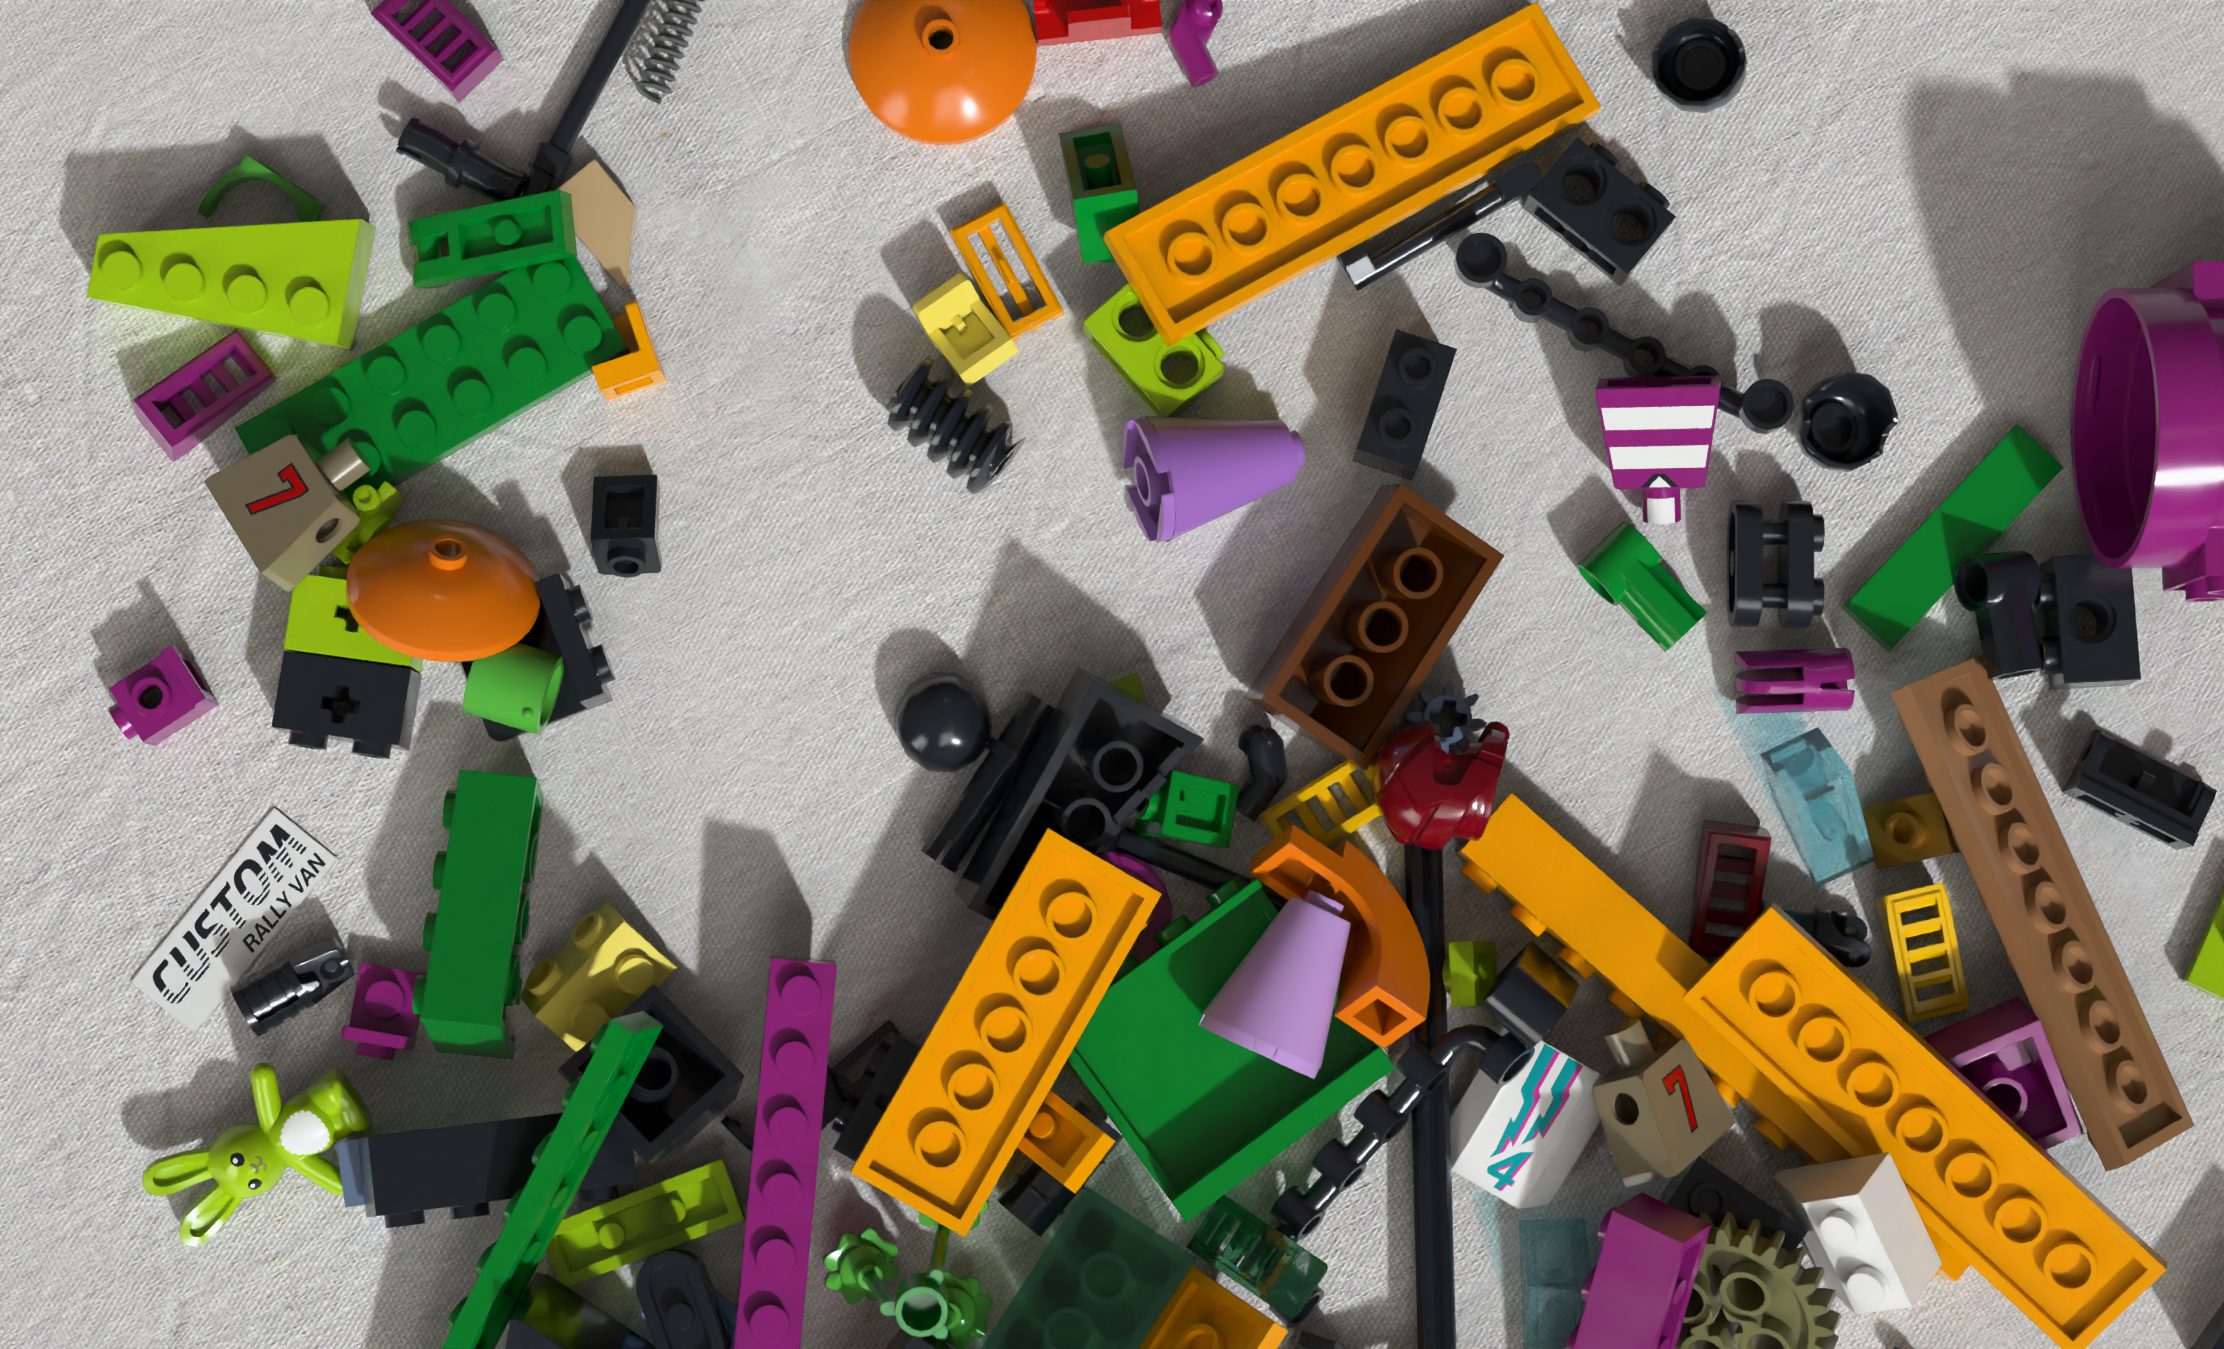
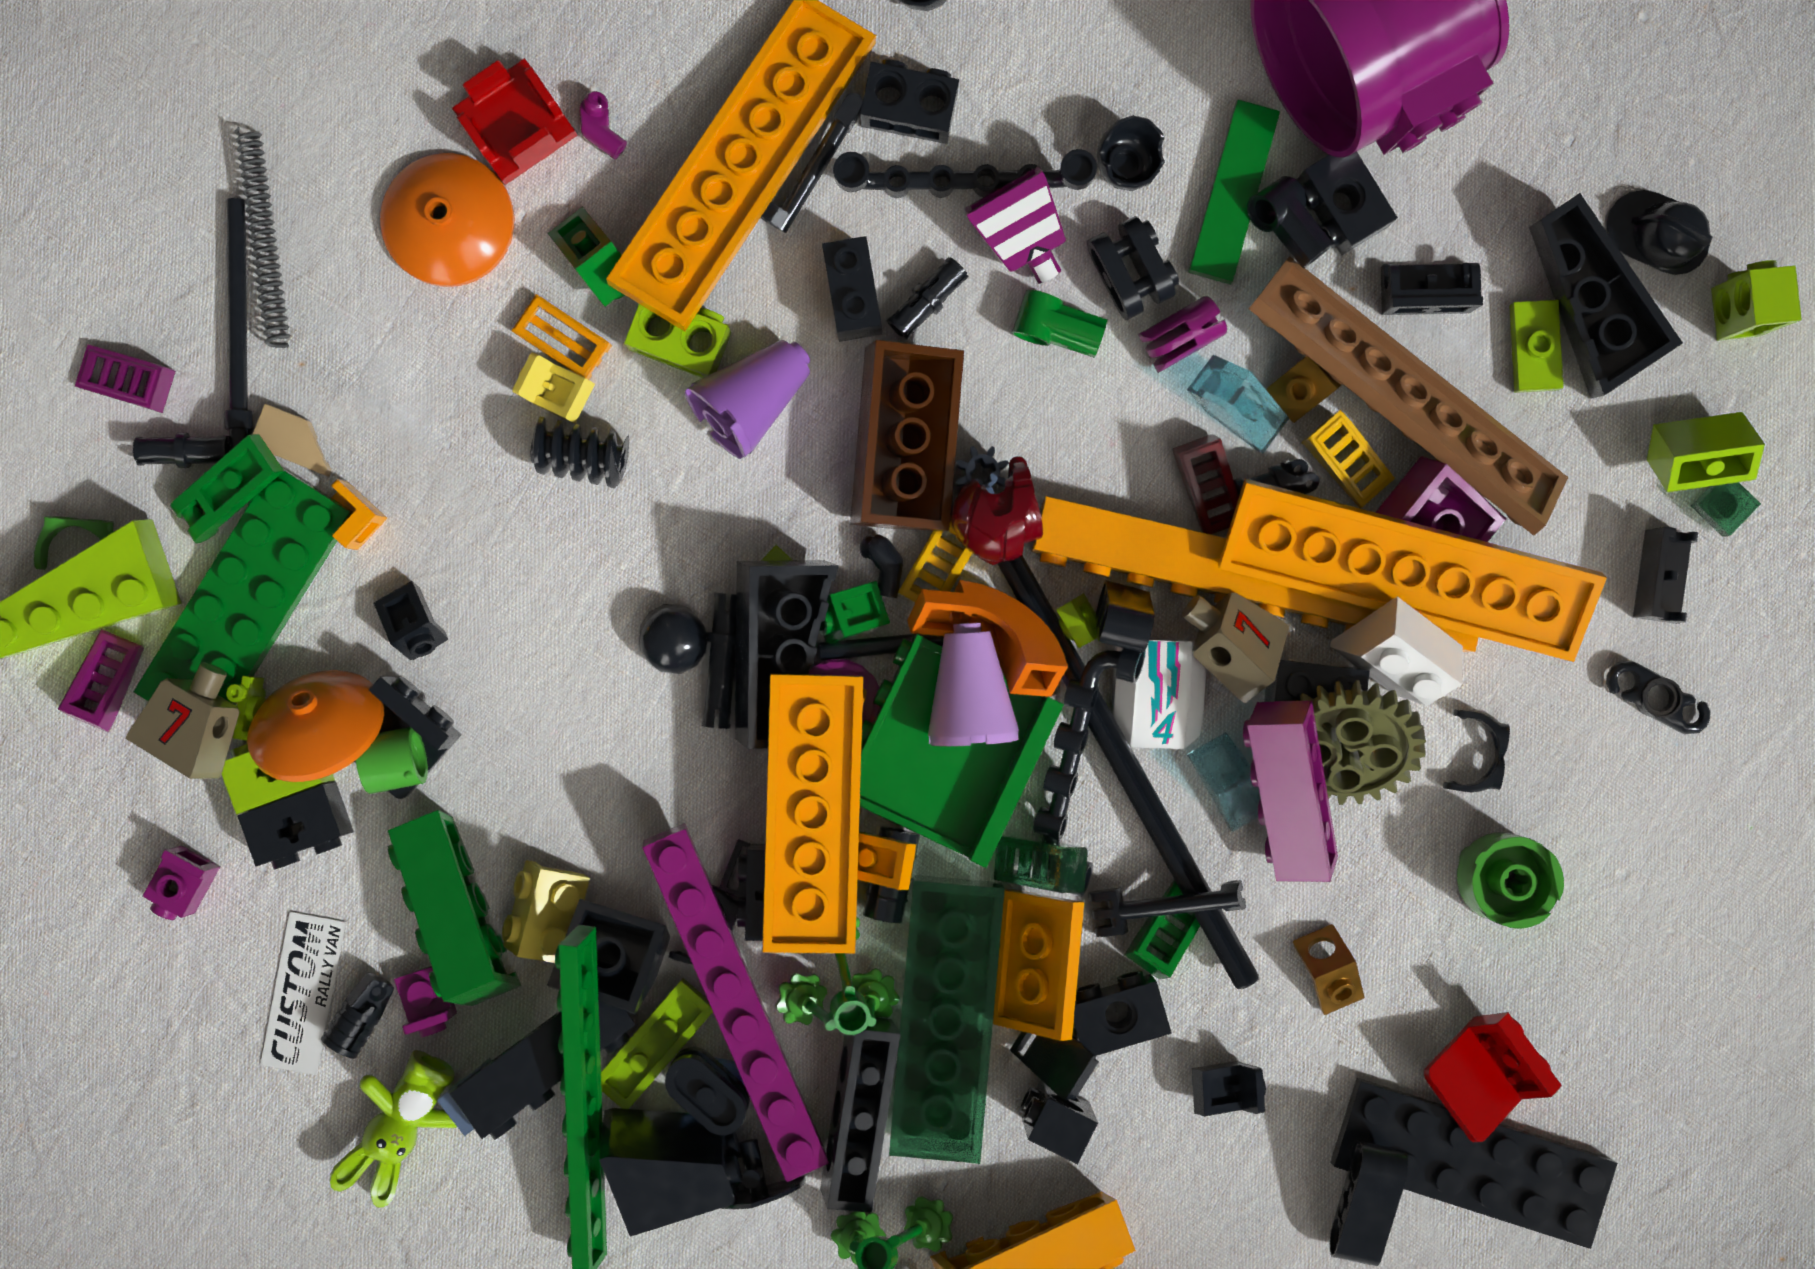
camera: 30 degrees left, 5 degrees up
(1492, 466) = (927, 298): none -> black pin

